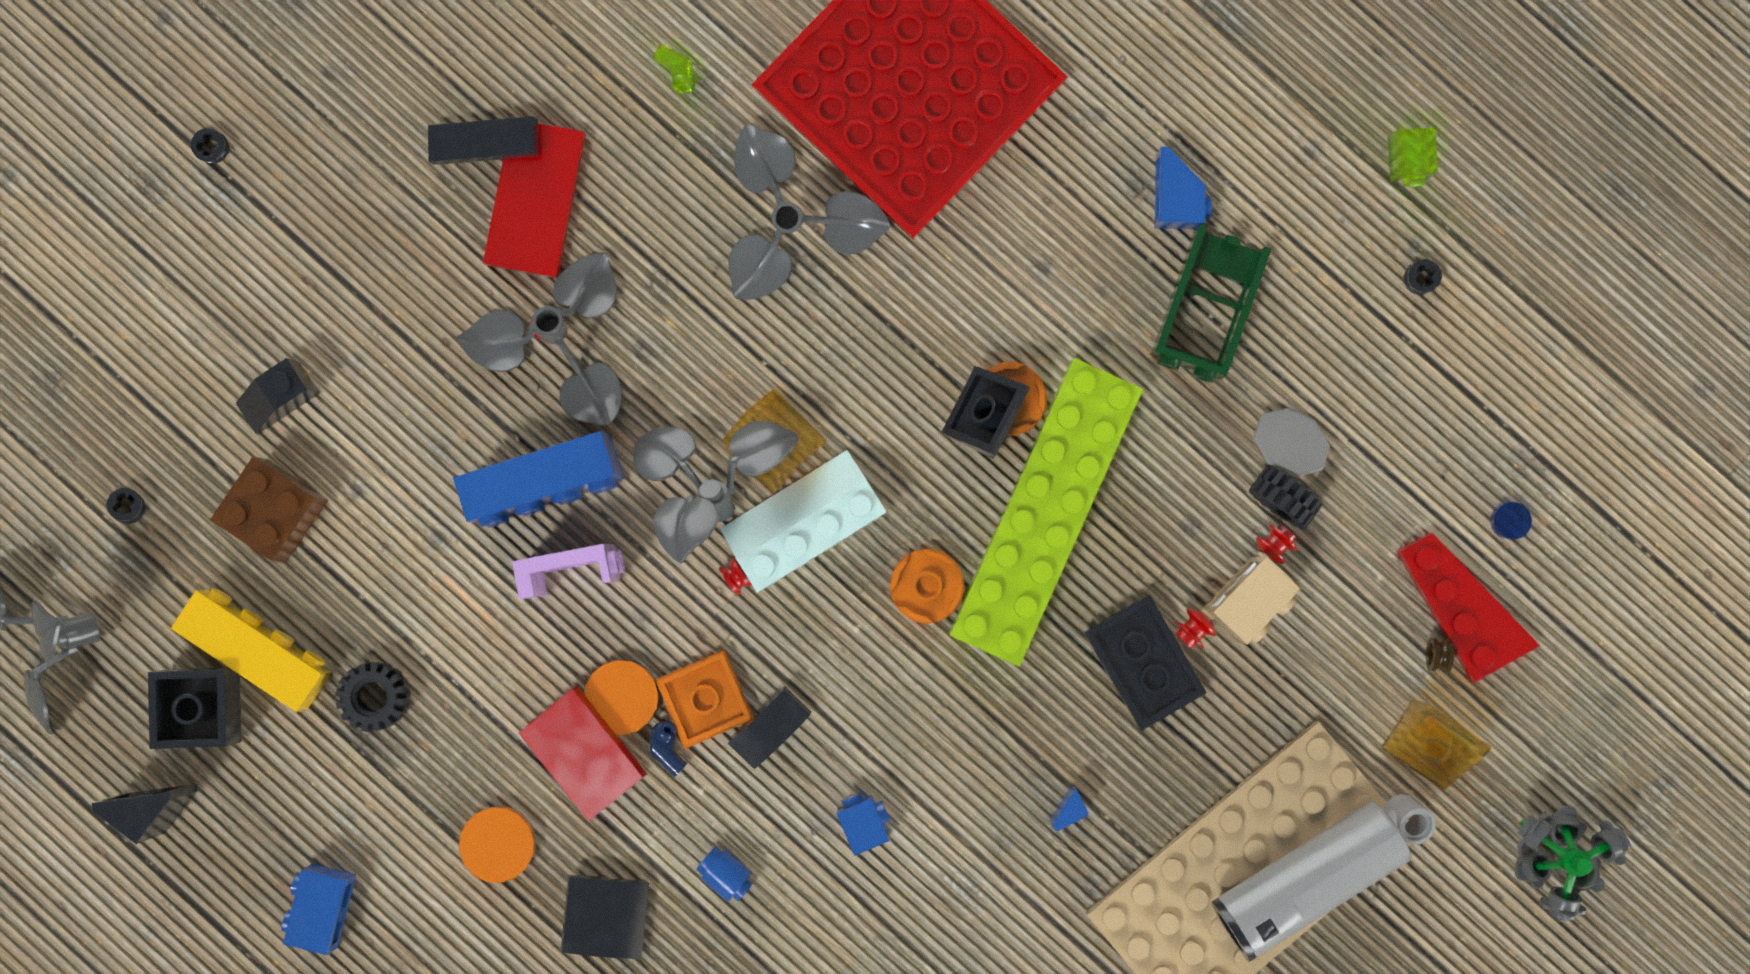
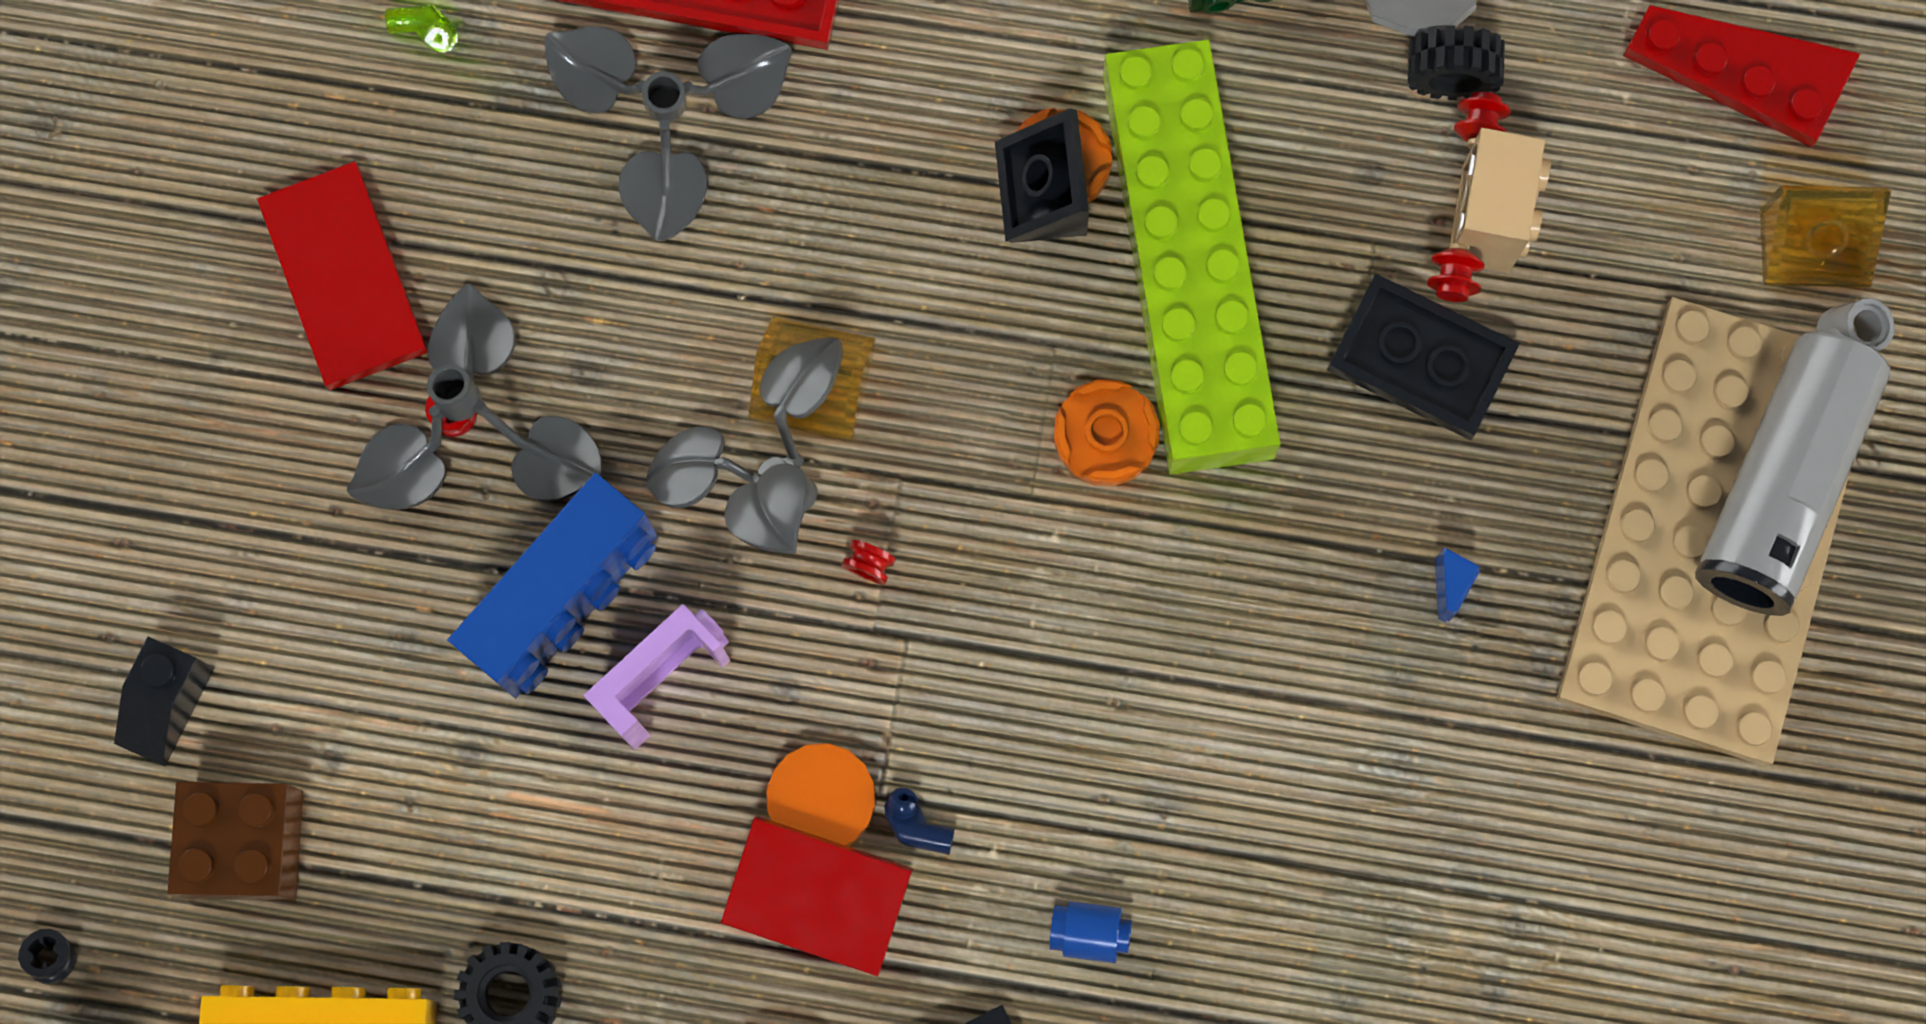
camera: 35 degrees left, 10 degrees down
(483, 140) = (238, 243): black tile -> none
(704, 699) = (925, 736): orange tile -> none
(770, 727) = (1027, 716): black slope -> none
(802, 521) = (910, 445): light aqua slope -> none
(863, 822) = (1217, 756): blue brick -> none
(1439, 654) = (1755, 133): dark brown bush -> none

